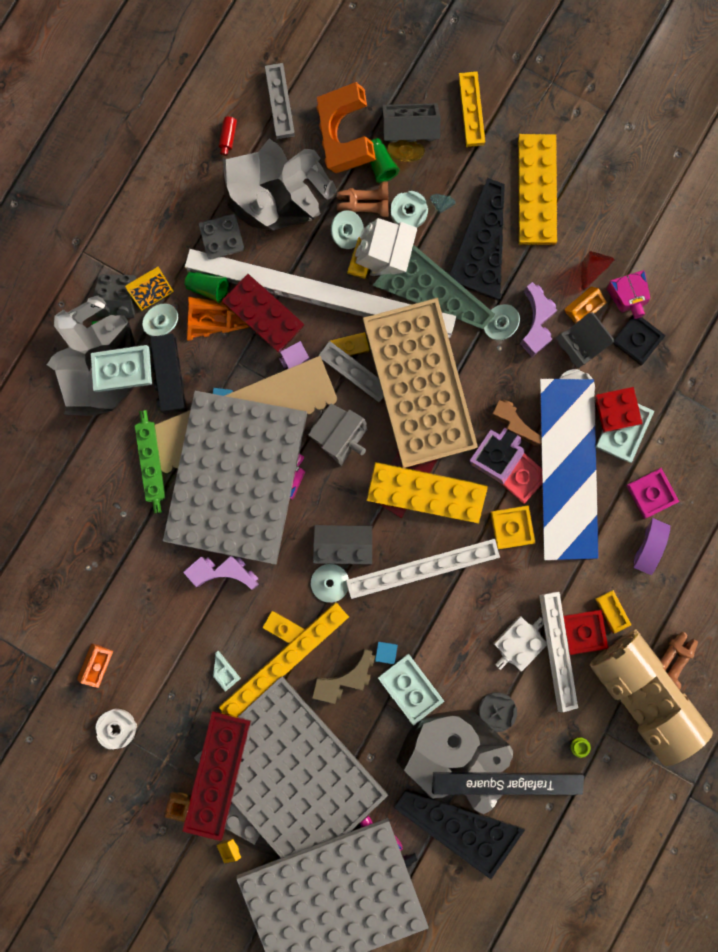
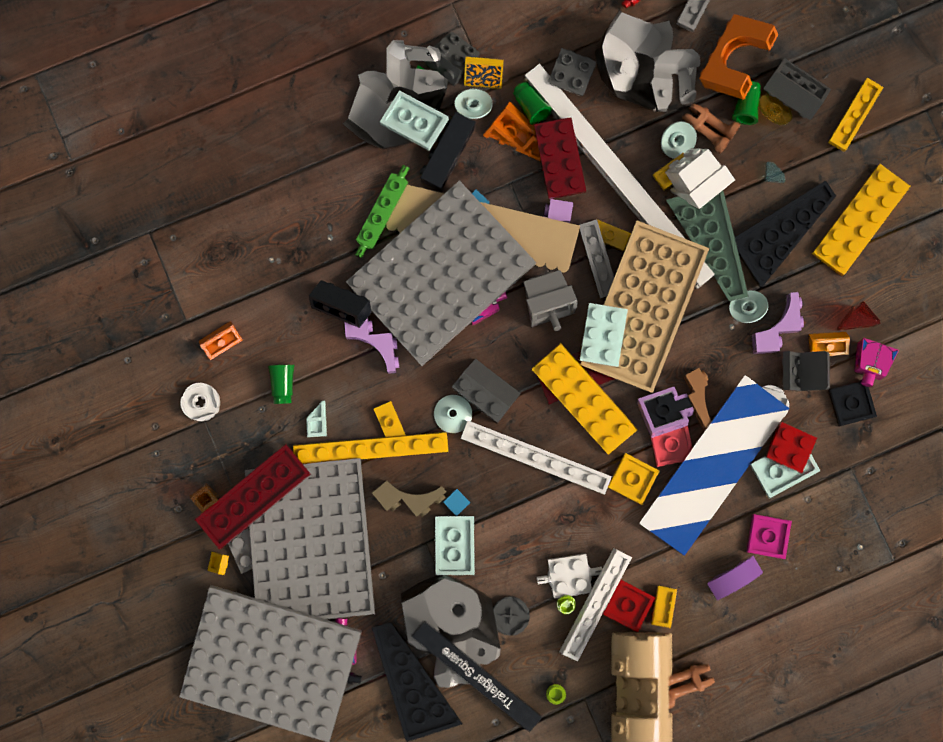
camera: 40 degrees right, 0 degrees up
(171, 563) = (340, 303): none -> black brick
(171, 663) = (281, 383): none -> green plant
(404, 430) = (603, 334): none -> light aqua plate
(406, 200) = (747, 151): light aqua plate -> none
(535, 669) = (566, 604): none -> lime plate

